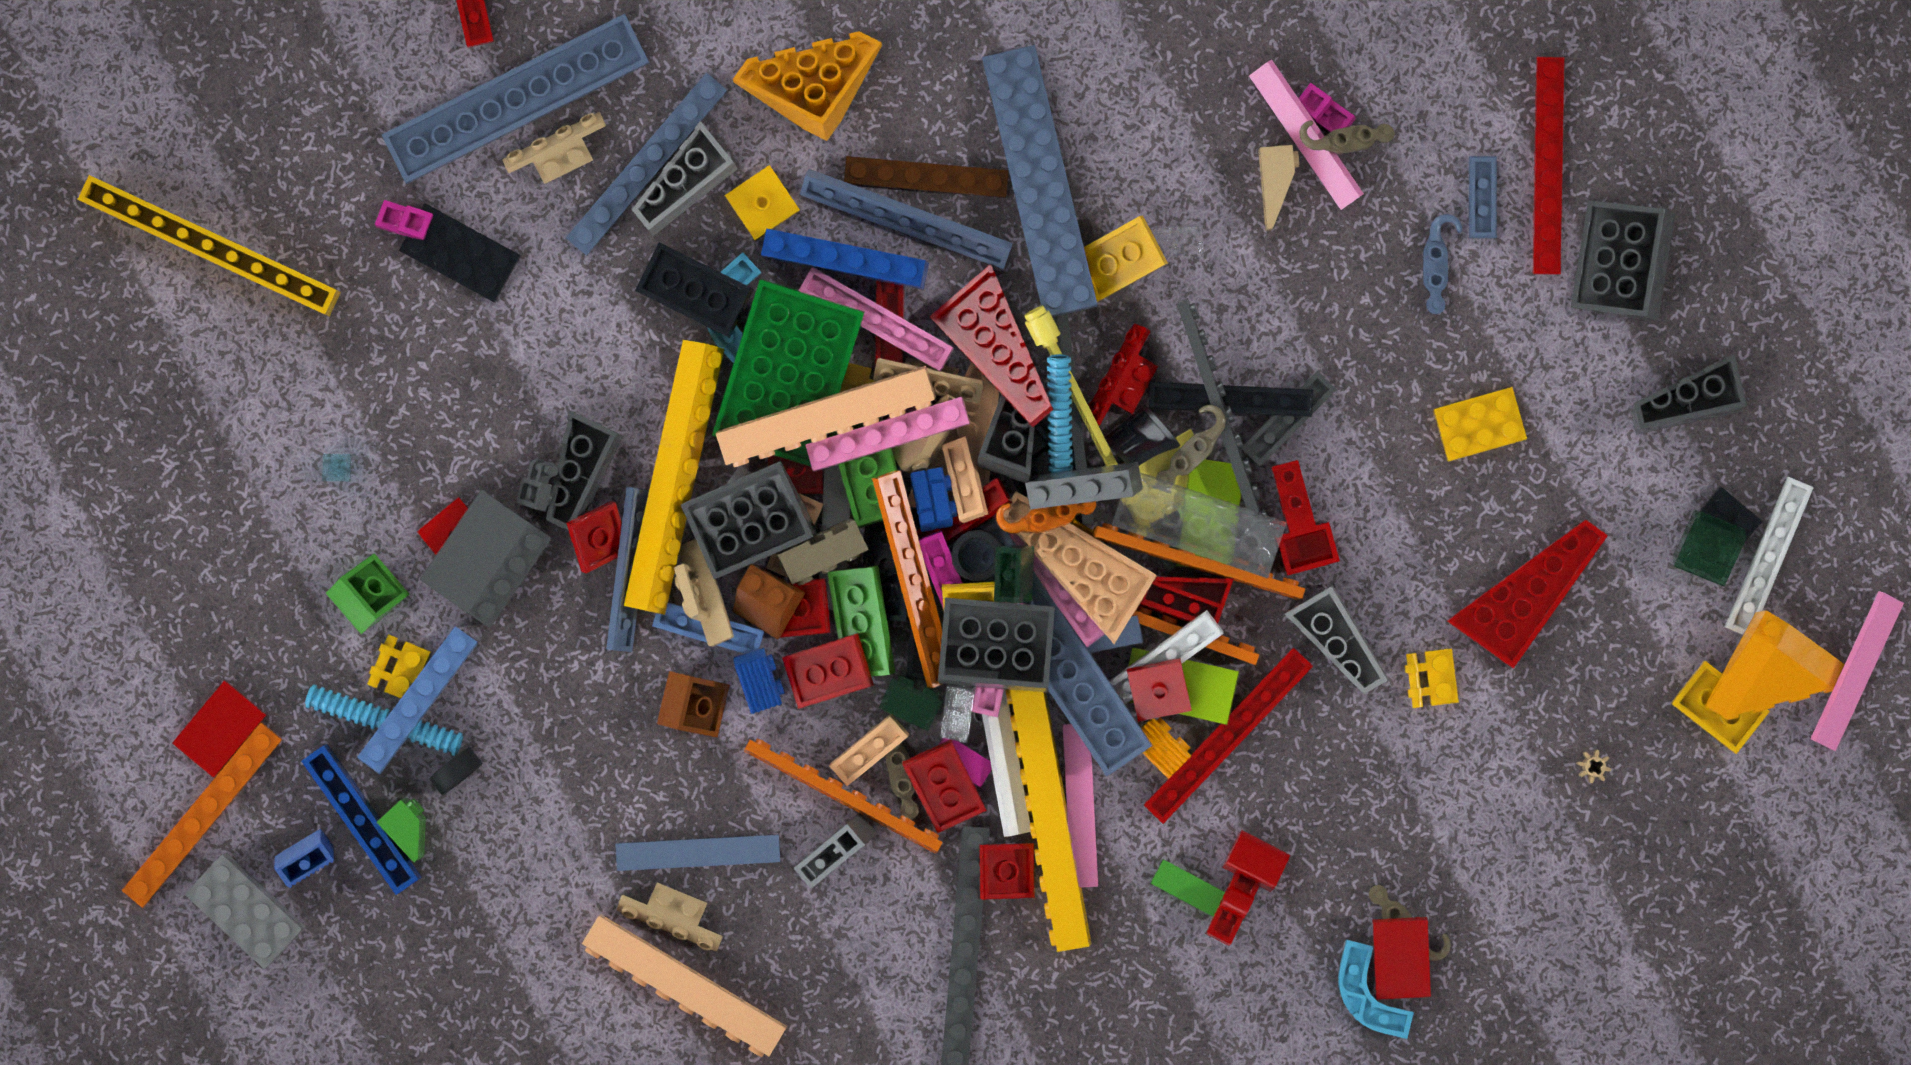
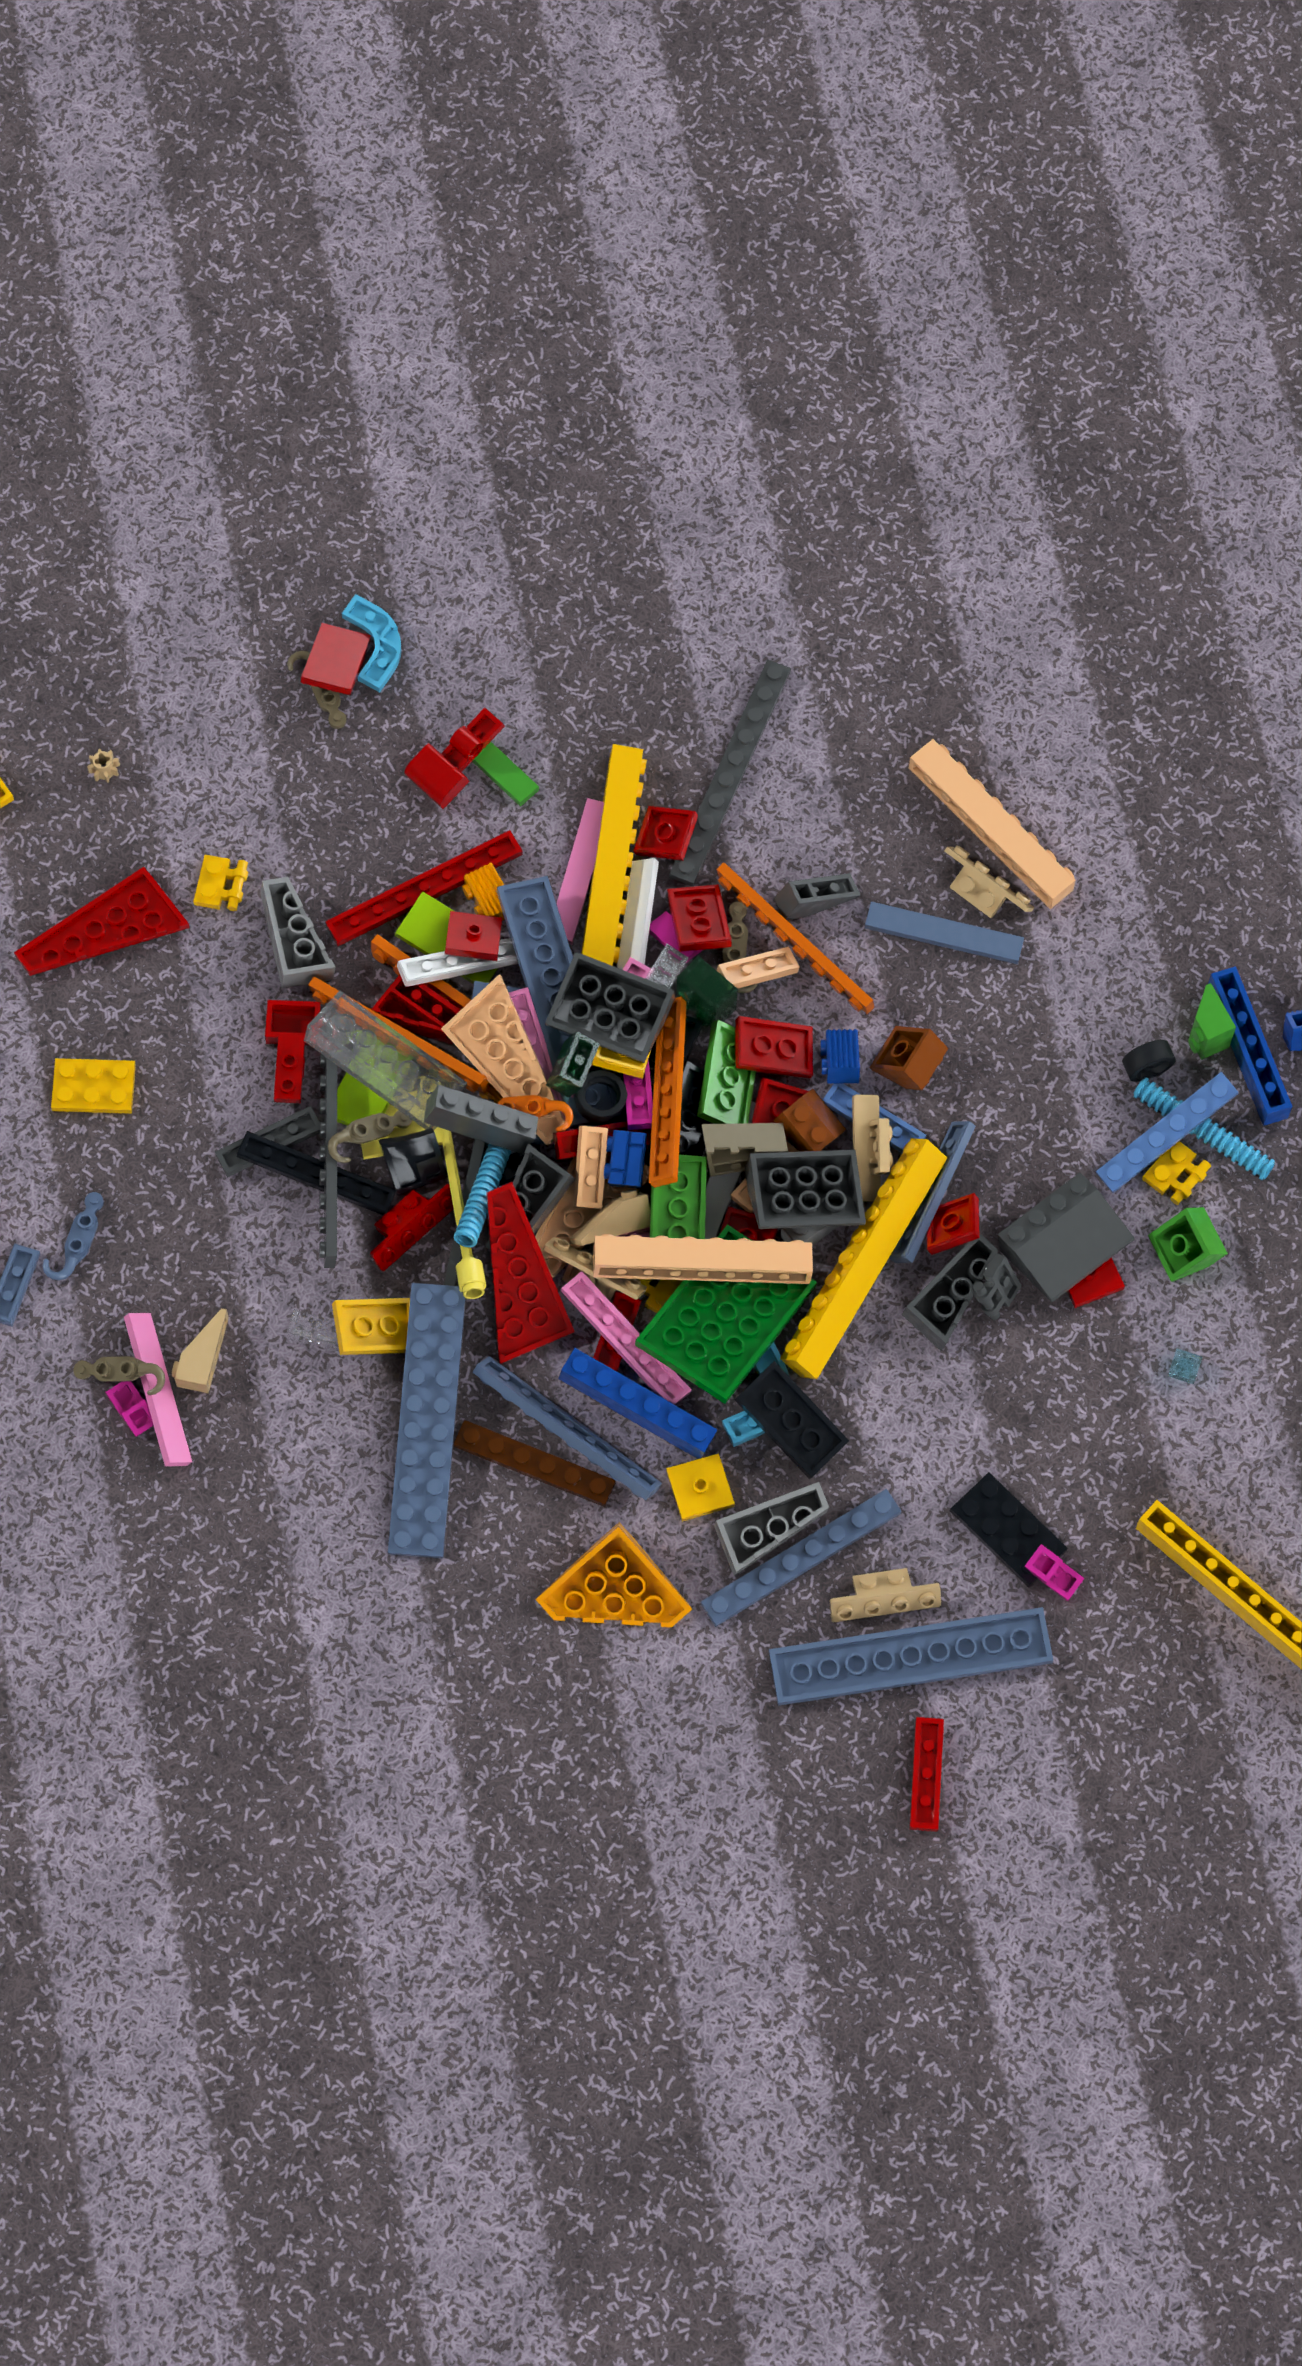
camera: 165 degrees left, 20 degrees down
(888, 434) = (623, 1223): bright pink plate -> none

